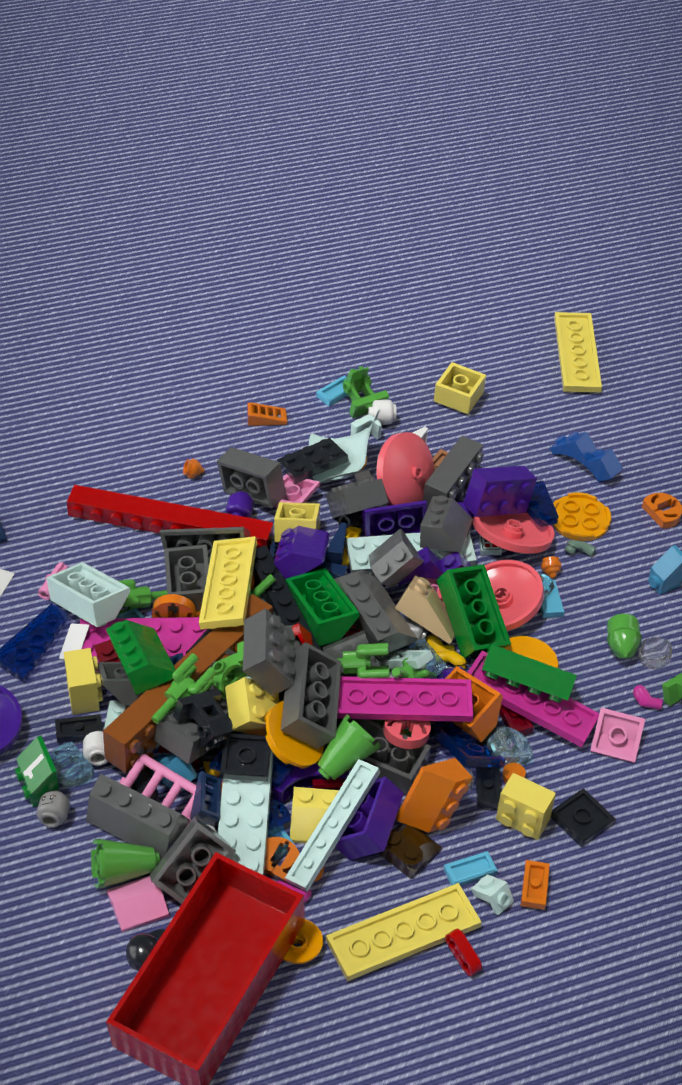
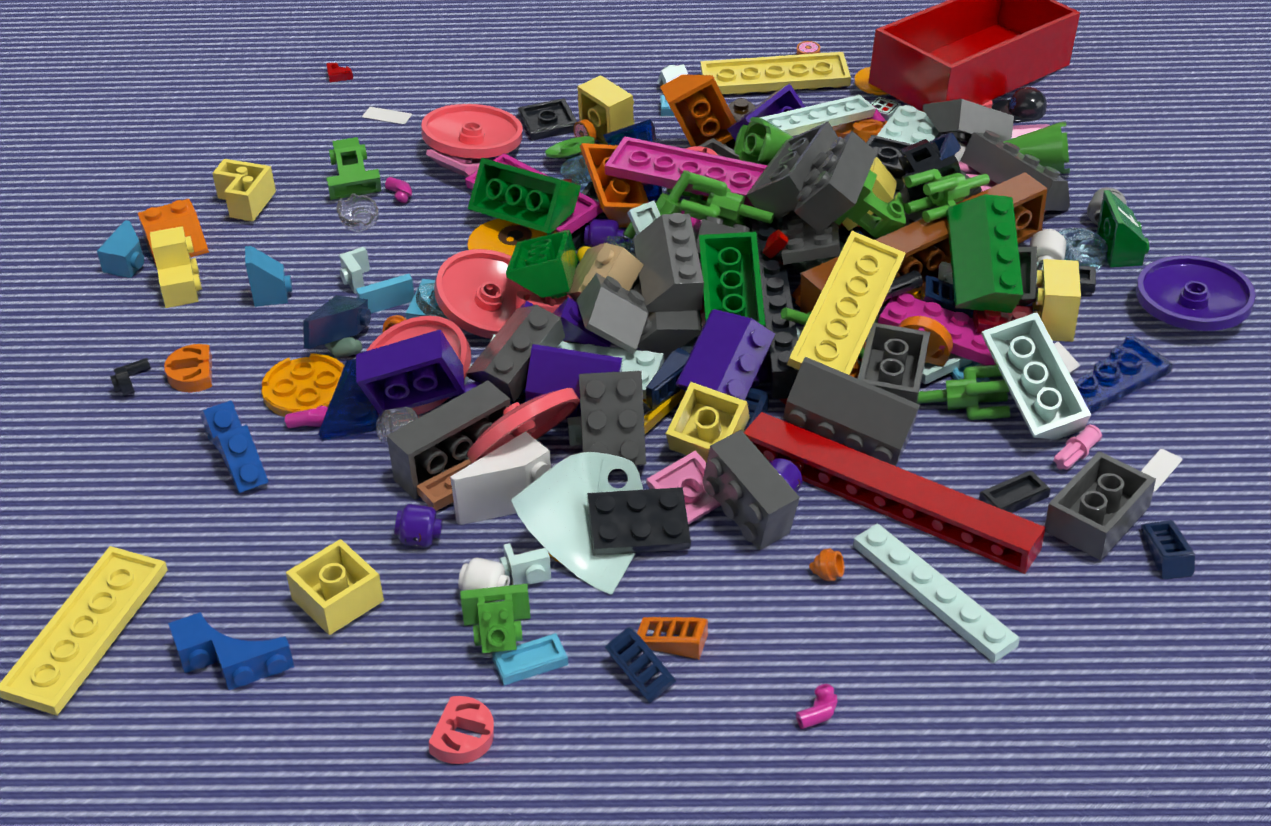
camera: 155 degrees left, 5 degrees down
(34, 529) = (1099, 505): none -> dark grey brick
(90, 543) = (1016, 492): none -> black tile
(127, 472) = (936, 593): none -> light aqua plate
(171, 397) = (822, 708): none -> dark pink arm
(280, 396) = (626, 648): none -> dark blue slope
(349, 349) = (462, 748): none -> coral piece
(386, 986) = (808, 47): none -> tile
(440, 434) = (417, 525): none -> dark purple head
(463, 952) = (729, 46): red beam -> none
(484, 350) = (238, 659): none -> blue arch
(535, 884) = (634, 77): orange plate -> none
(539, 762) = (568, 148): none -> bright green dish
(558, 488) = (309, 417): none -> dark pink arm
(578, 588) = (387, 293): none -> medium azure tile
(590, 552) = (336, 320): none -> dark blue slope
(617, 601) = (353, 265): none -> light aqua bracket
(624, 635) = (378, 226): bright green helmet -> none
(628, 760) = (471, 131): none -> coral dish

